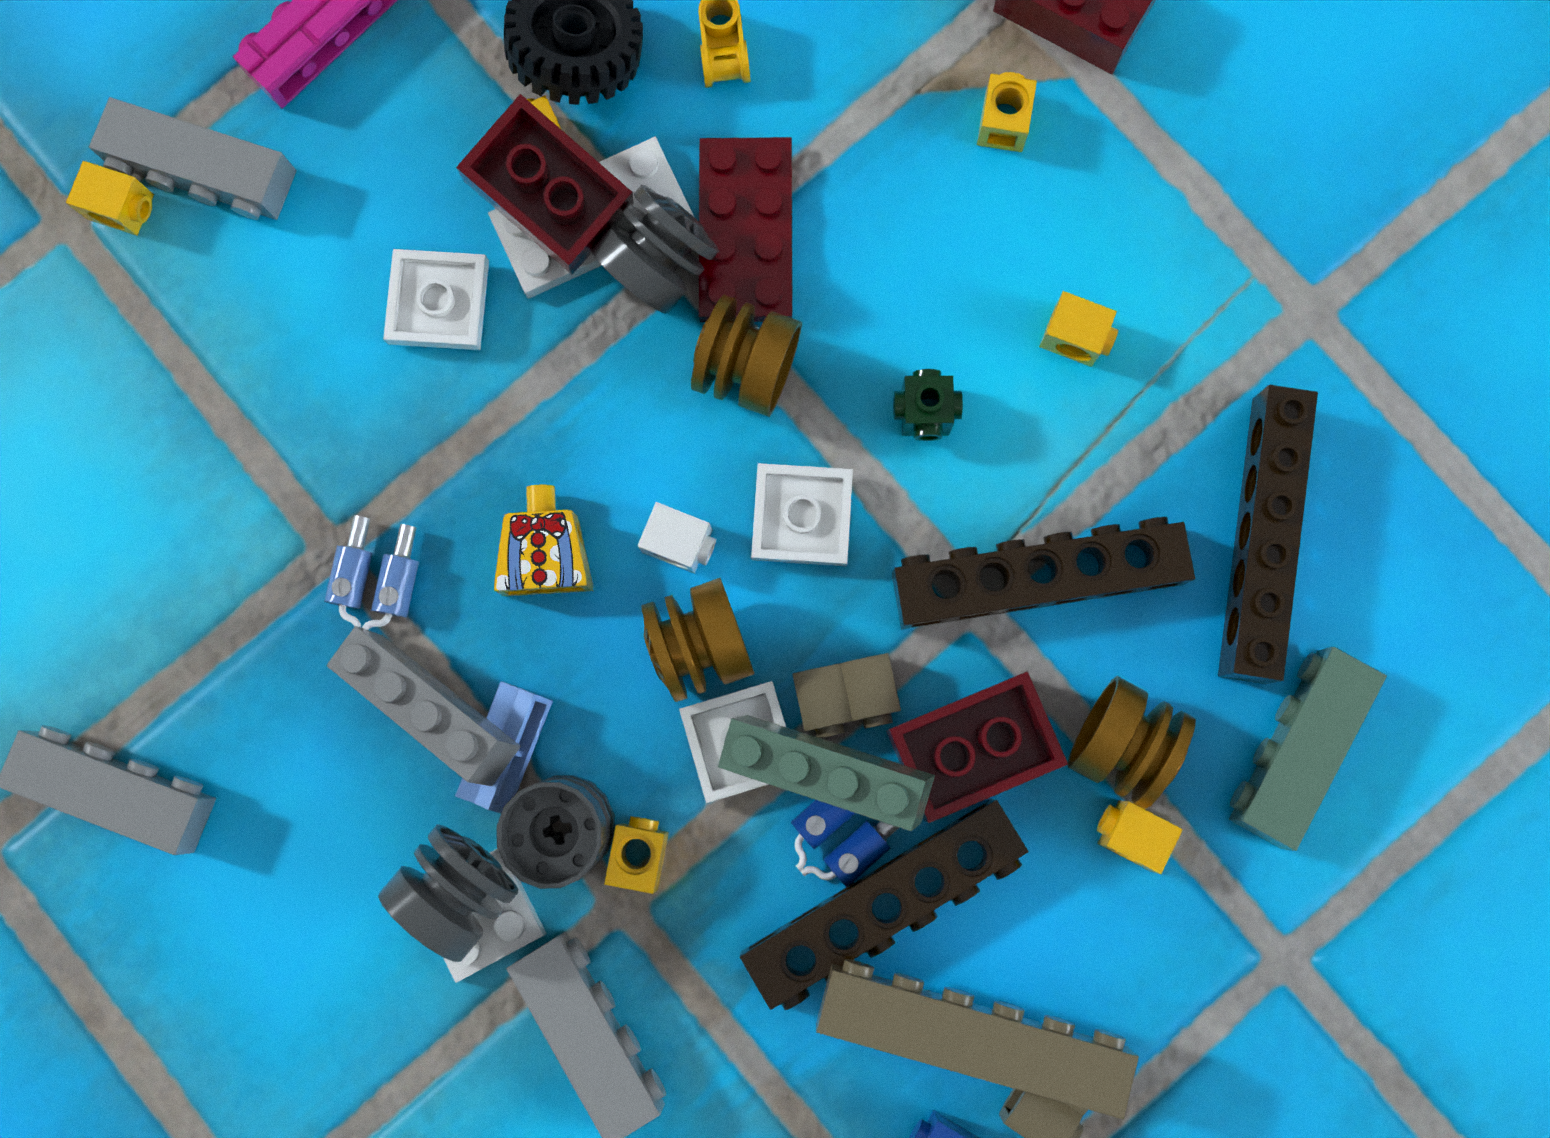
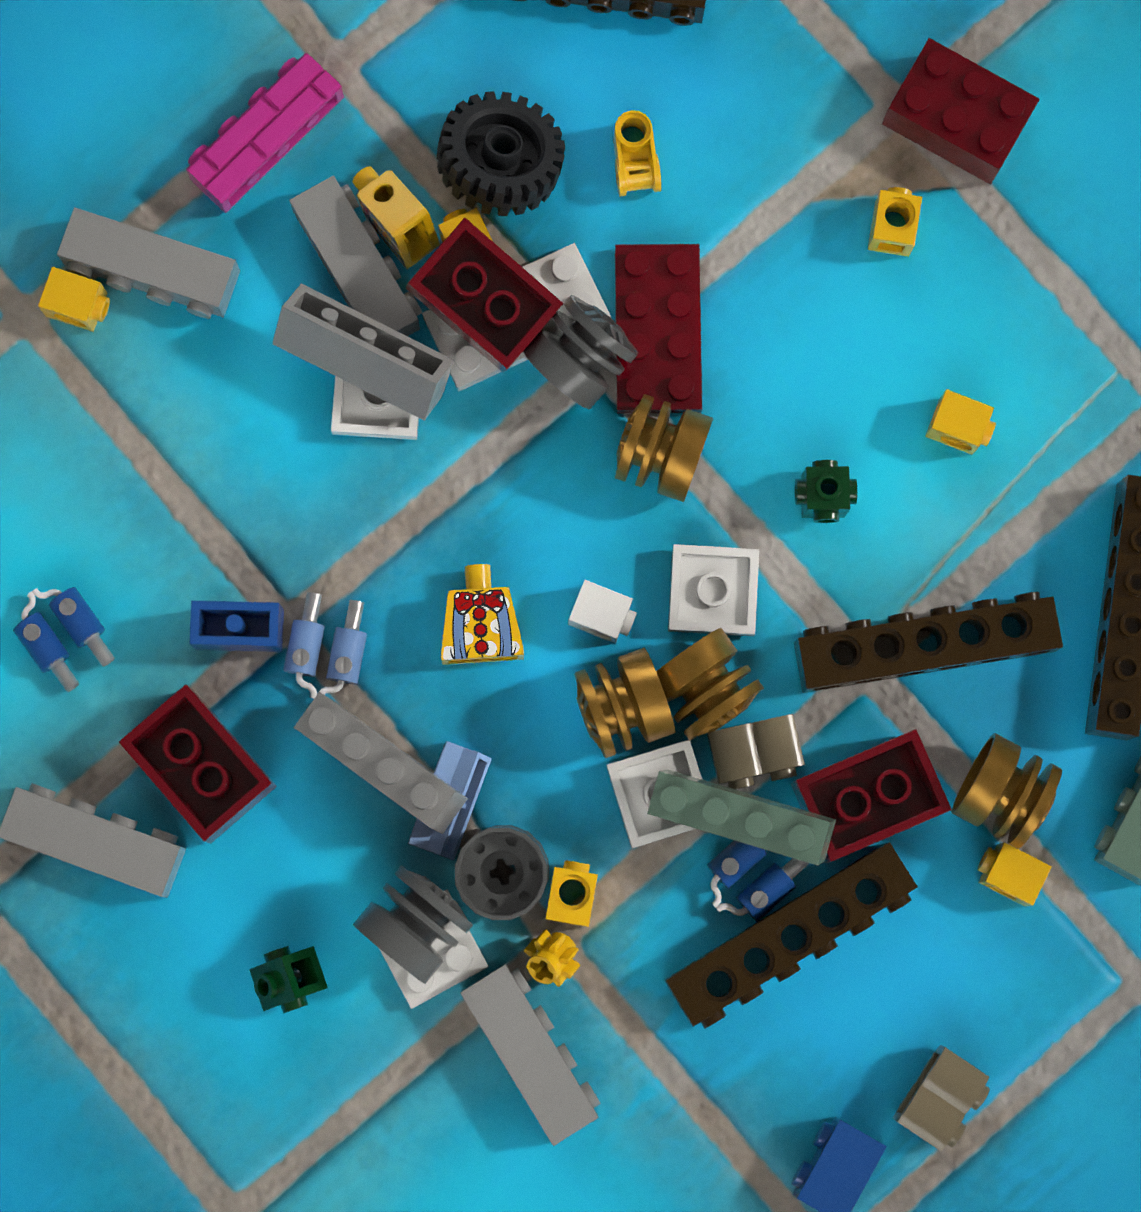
camera: 15 degrees left, 0 degrees up
(67, 573) = (78, 622): none -> blue piece
(222, 706) = (197, 764): none -> dark red brick
(270, 552) = (236, 626): none -> blue brick
(314, 949) = (288, 978): none -> dark green brick
(413, 249) = (362, 351): none -> light grey brick
(414, 158) = (352, 258): none -> light grey brick
(452, 94) = (396, 215): none -> yellow torso
(613, 927) = (552, 958): none -> yellow gear
(789, 619) = (706, 684): none -> pearl gold wheel
(977, 1039) = (873, 1046): dark tan brick -> none

